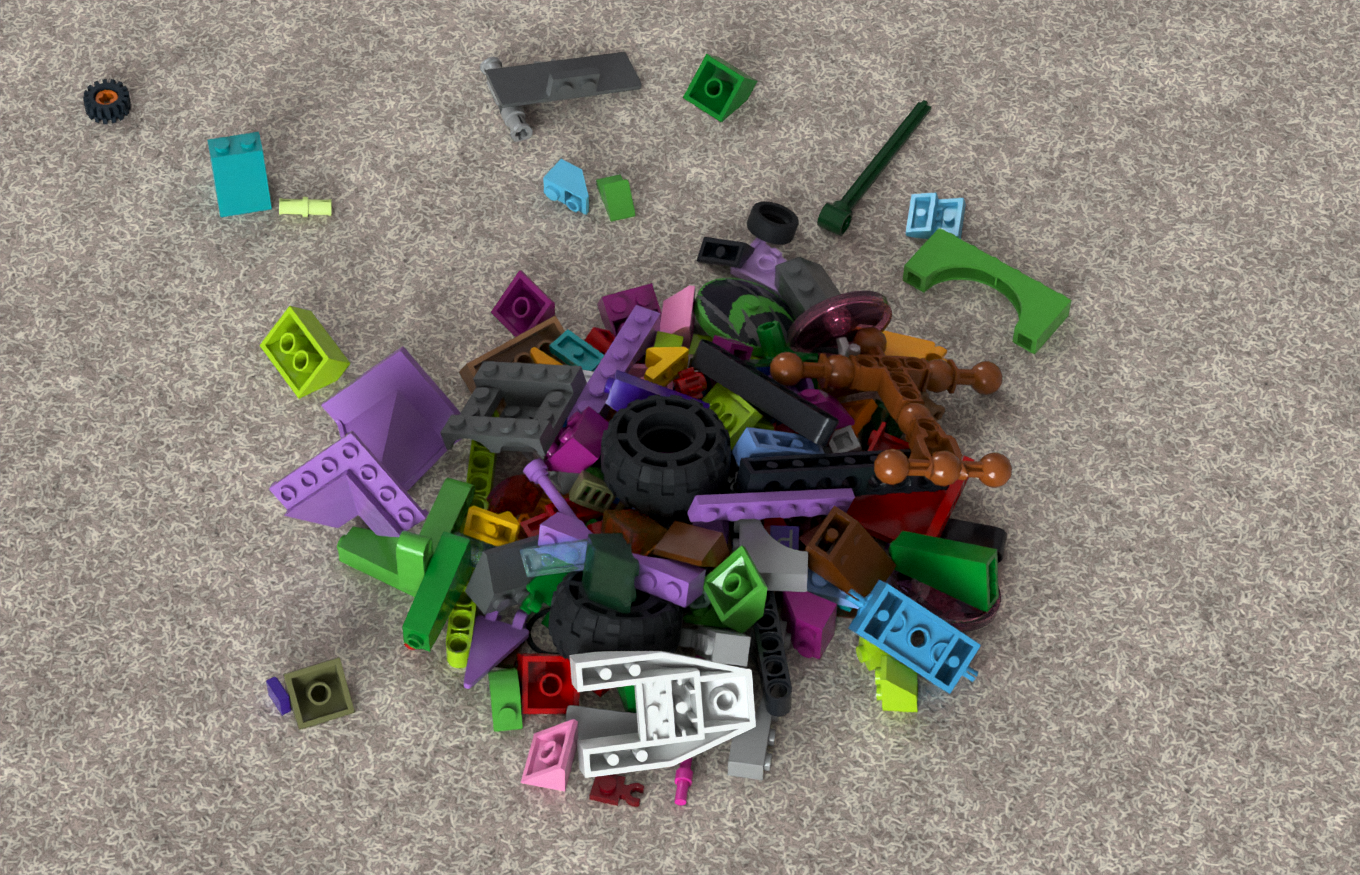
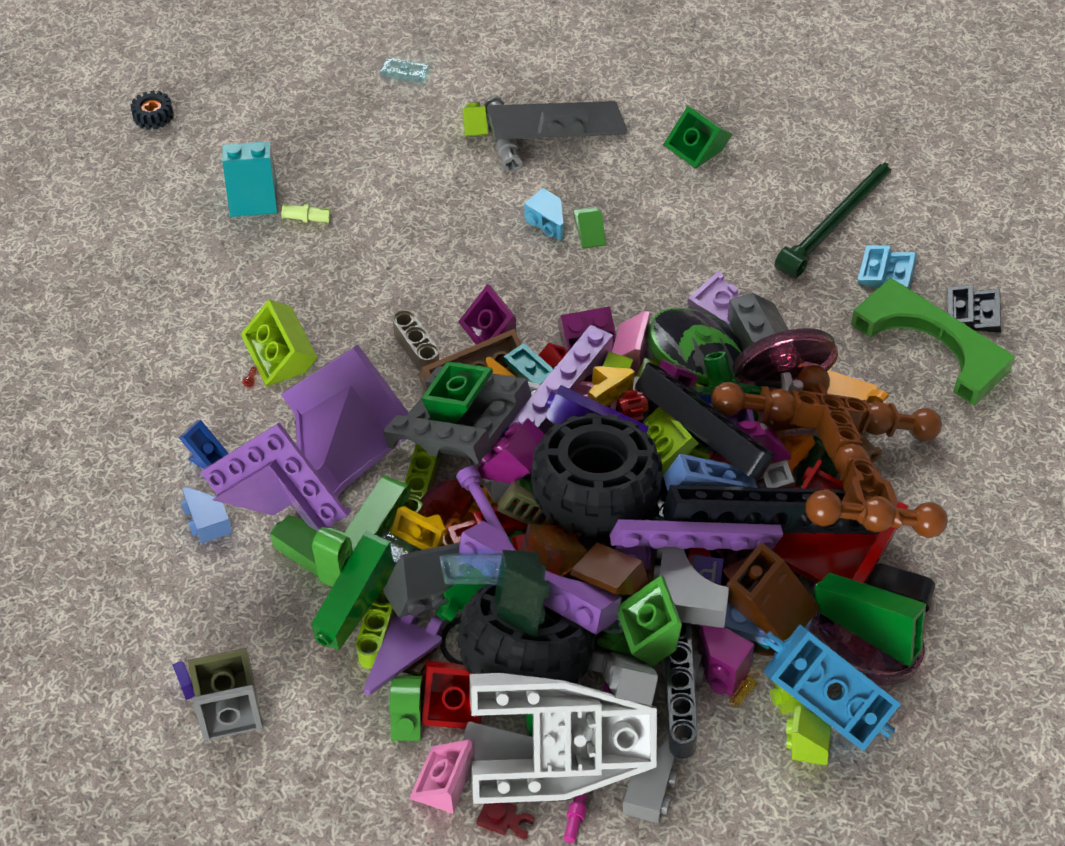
camera: 10 degrees right, 0 degrees up
(251, 468) = (202, 445): none -> blue slope
(266, 533) = (208, 516): none -> medium blue slope
(279, 394) = (248, 381): none -> clear red piece
(330, 720) = (228, 712): none -> light grey slope
(382, 35) = (403, 72): none -> clear light blue tile
(449, 336) = (414, 339): none -> dark tan beam
(472, 86) = (474, 119): none -> lime slope
(509, 385) = (454, 390): none -> green slope
(724, 252) = (683, 284): black slope -> none
(772, 223) = (732, 261): black tyre -> none
(832, 648) = (746, 686): none -> clear yellow piece
(1039, 247) = (976, 309): none -> slope

